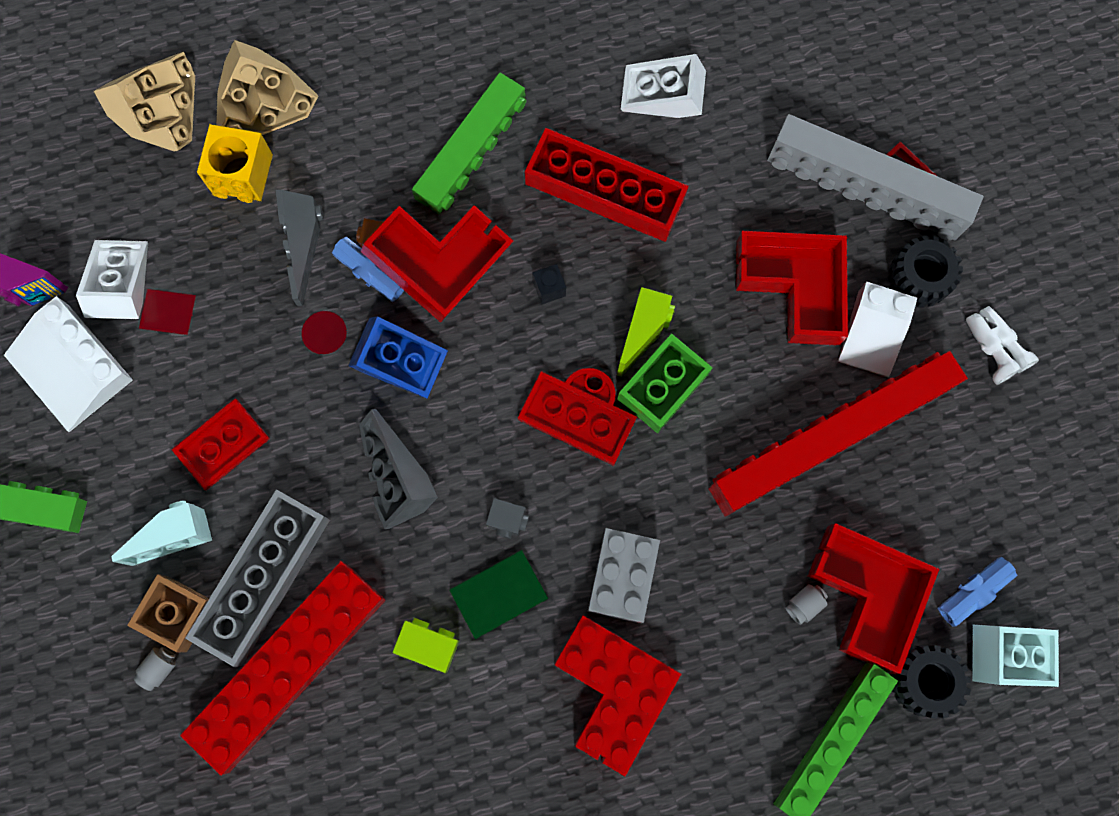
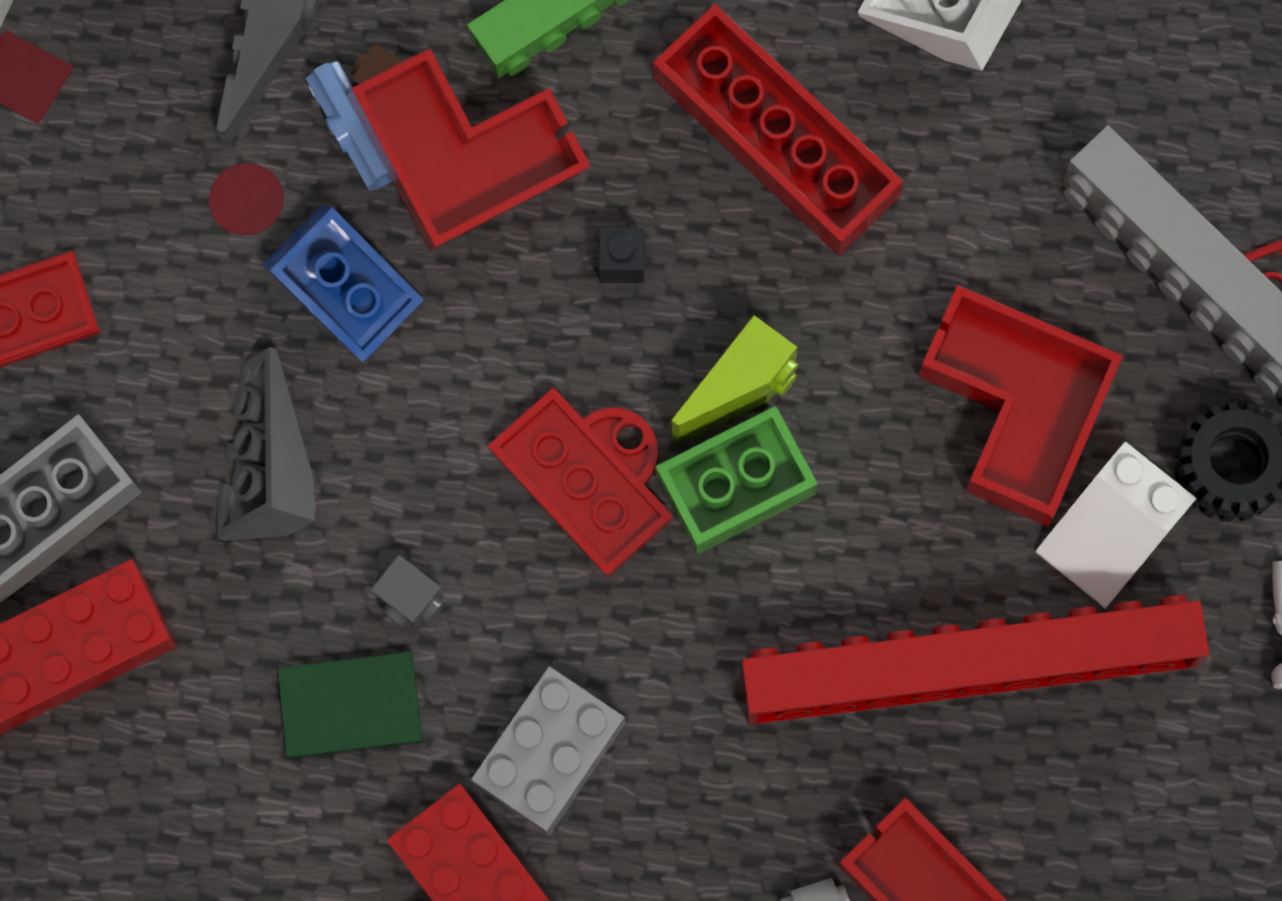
camera: 30 degrees right, 0 degrees up
(426, 646) = (210, 737): lime brick -> none

